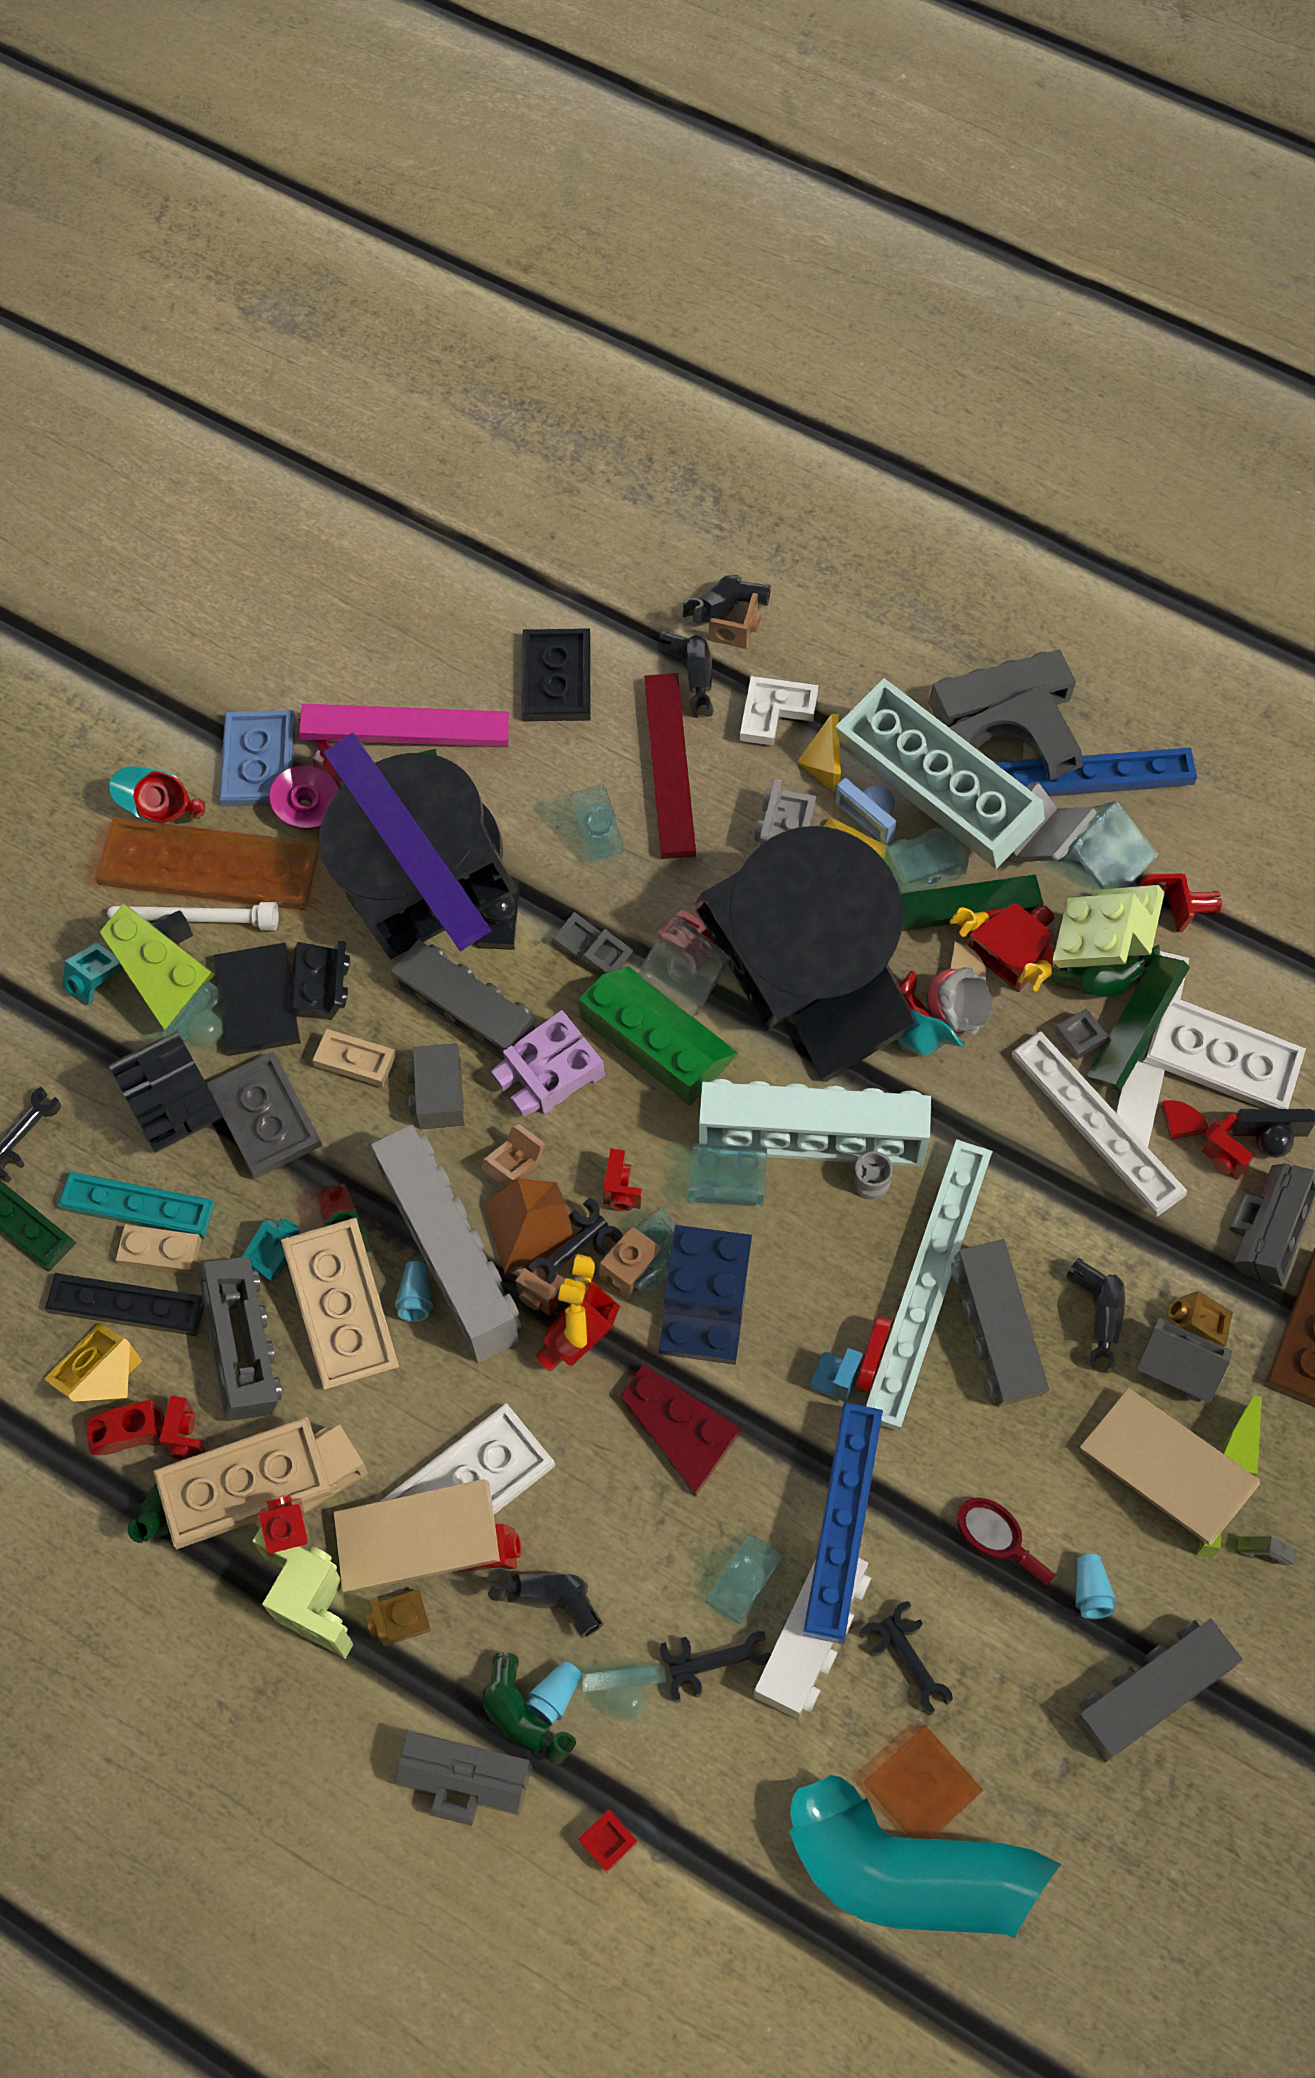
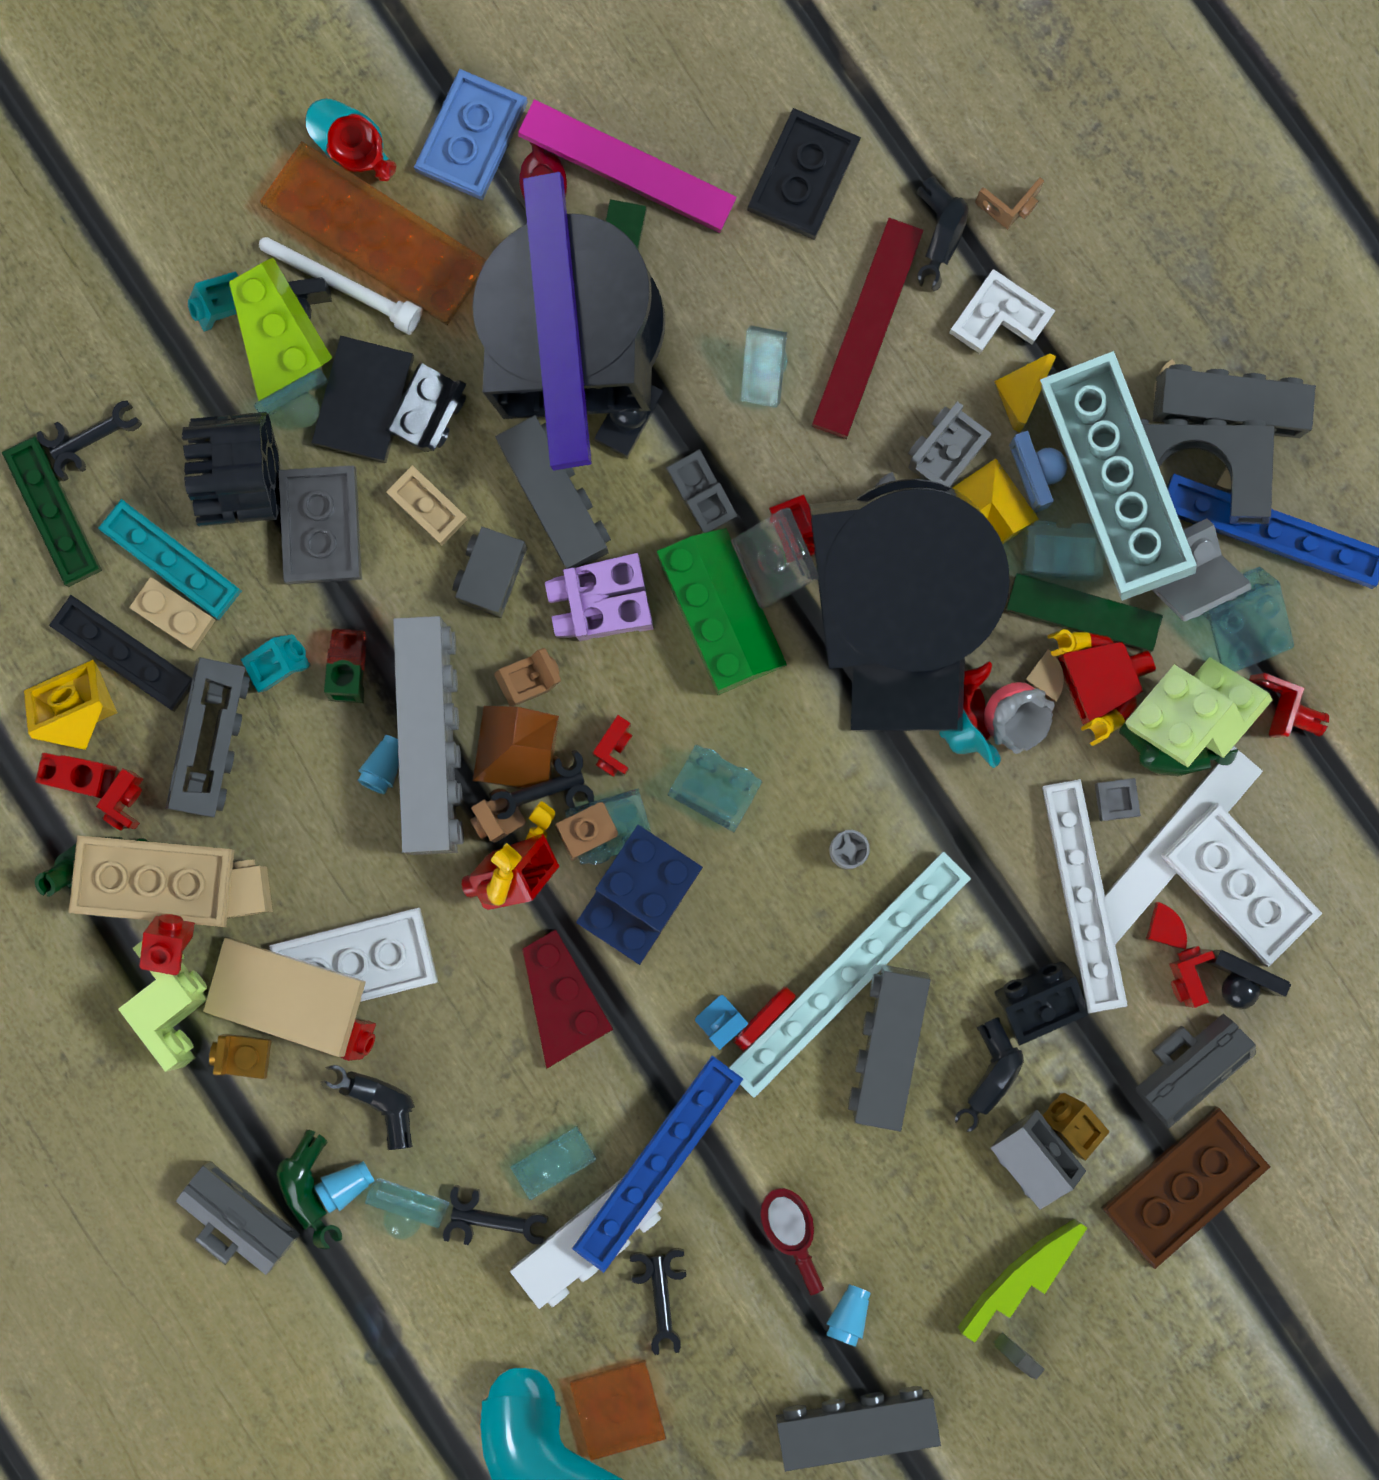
camera: 25 degrees right, 20 degrees up
(302, 784) = (488, 186): dark pink dish -> none
(340, 1303) = (309, 748): tan tile -> none
(608, 1841) = (332, 1330): red plate -> none
(723, 597) = (1009, 164): black arm -> none
(816, 1122) = (817, 778): light aqua brick -> none
(1112, 1228) = (1042, 1002): none -> black bracket
(1138, 1022) = (1176, 816): dark green tile -> none
(1170, 1466) = (971, 1249): tan tile -> none

